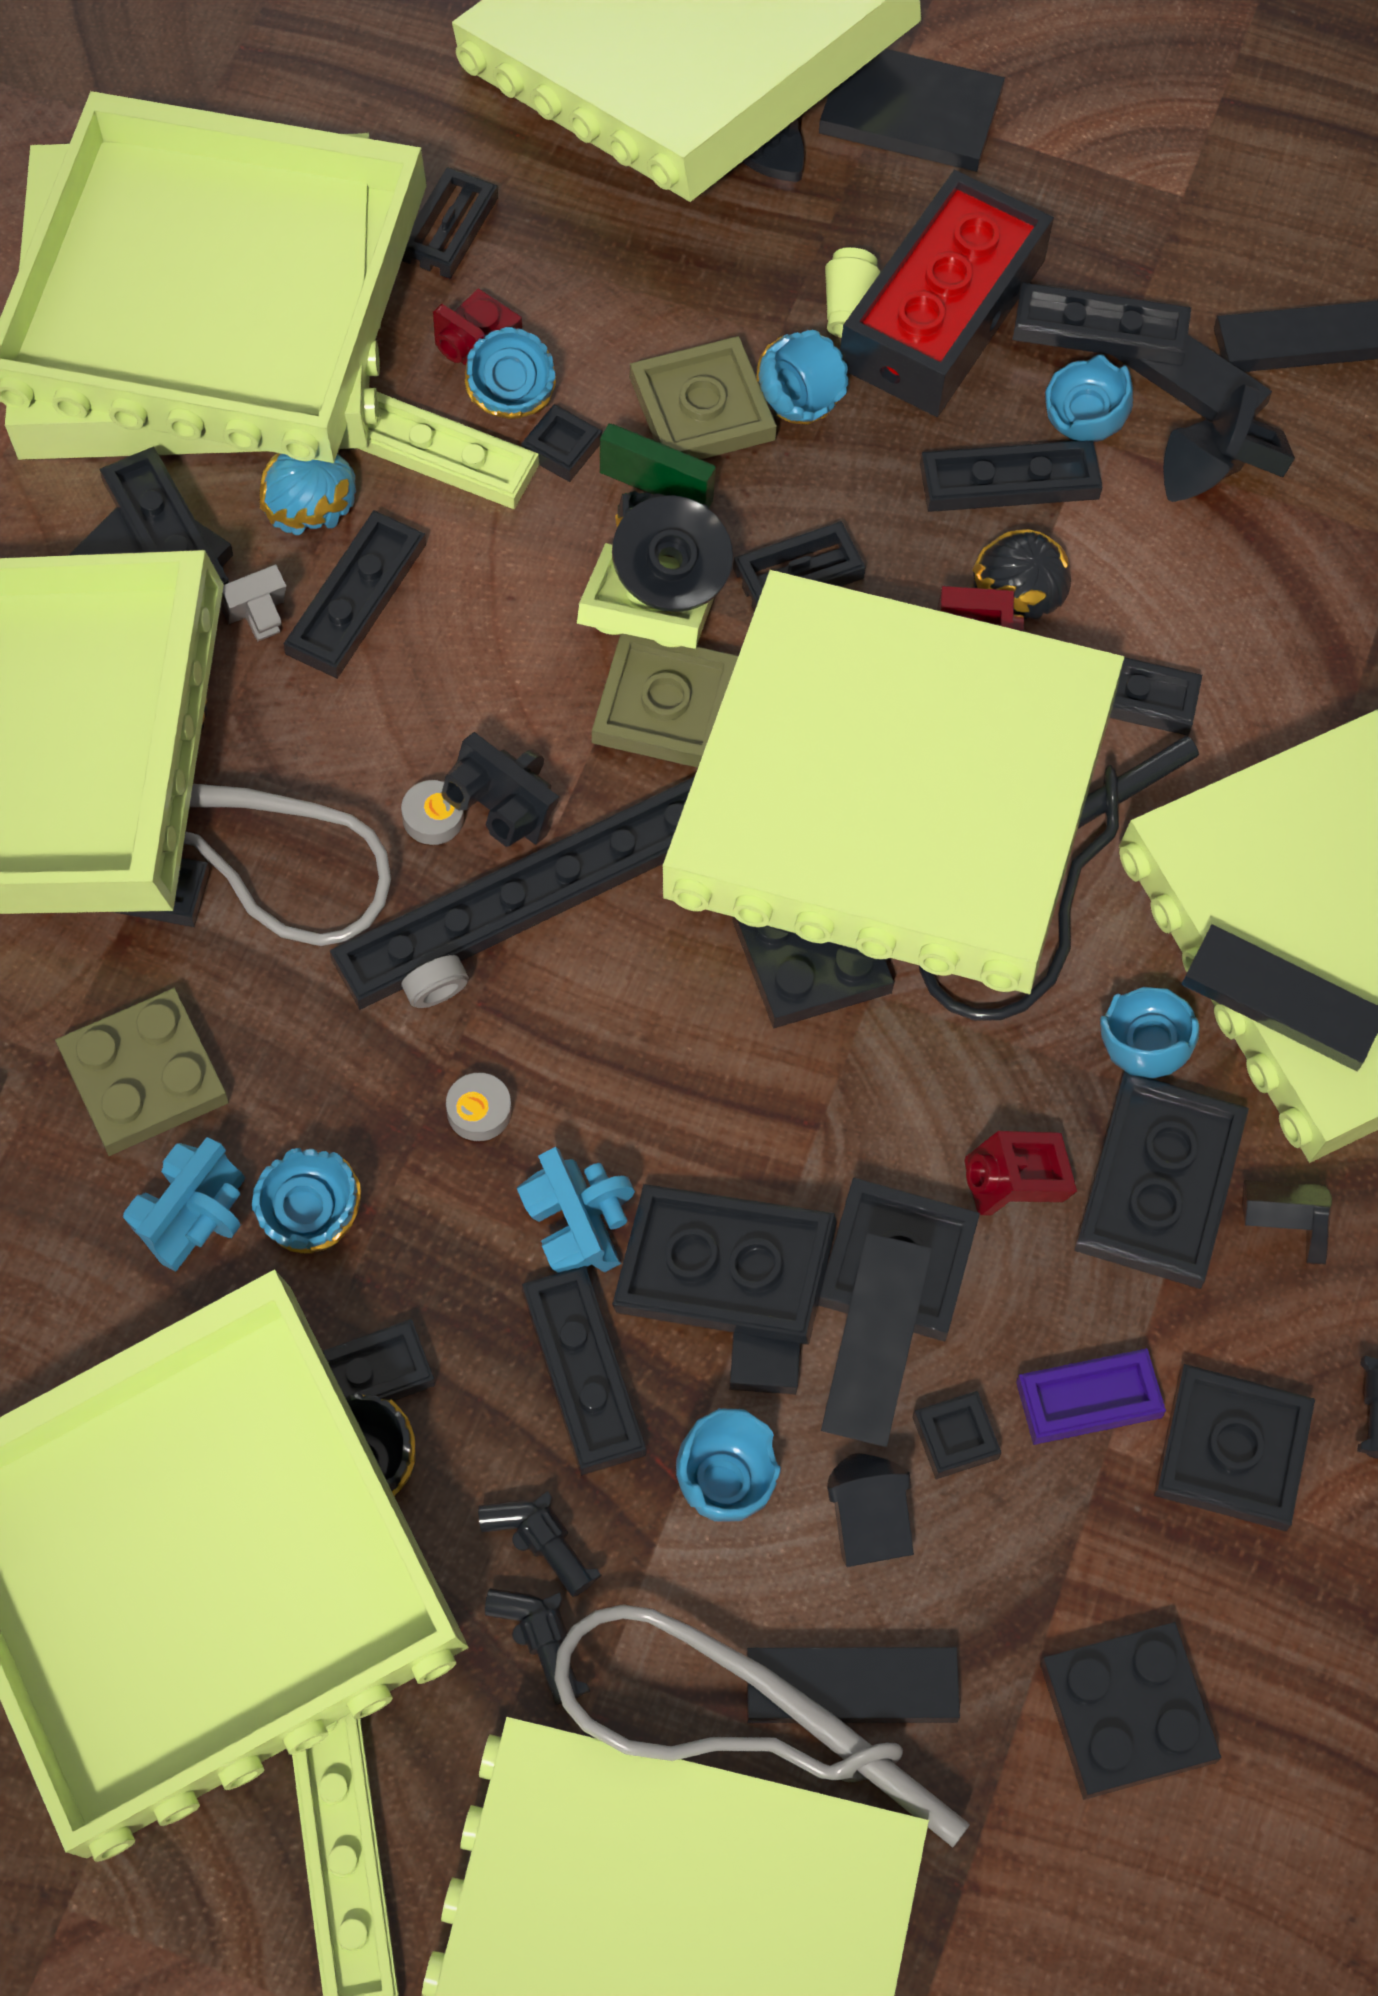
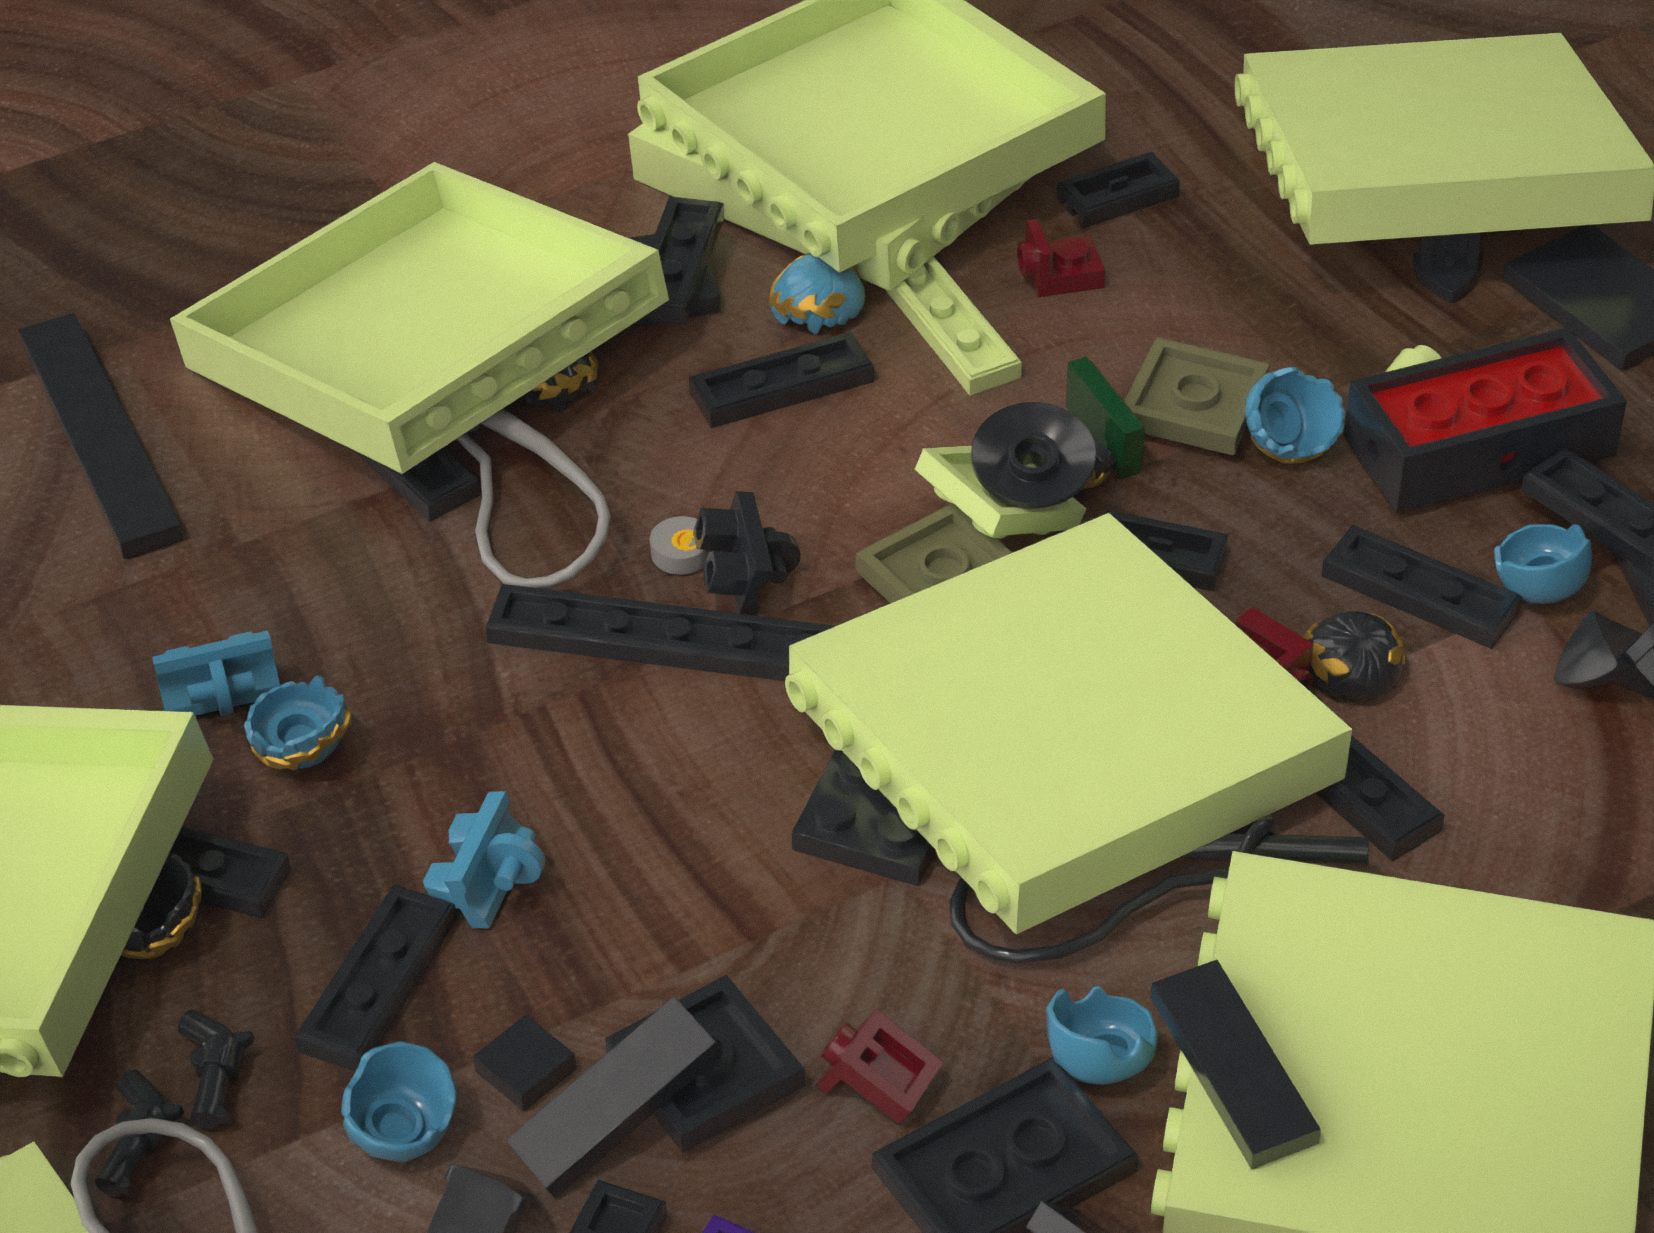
camera: 45 degrees right, 20 degrees down
(141, 1071) = (286, 583): olive plate -> none
(255, 599) = (695, 336): light grey tile -> none
(435, 981) = (553, 646): light grey tile -> none
(478, 1106) = (498, 752): light grey tile -> none
(510, 374) = (1050, 295): dark azure hair -> none
(563, 442) = (1047, 367): black tile -> none
(725, 1263) = (561, 971): black tile -> none

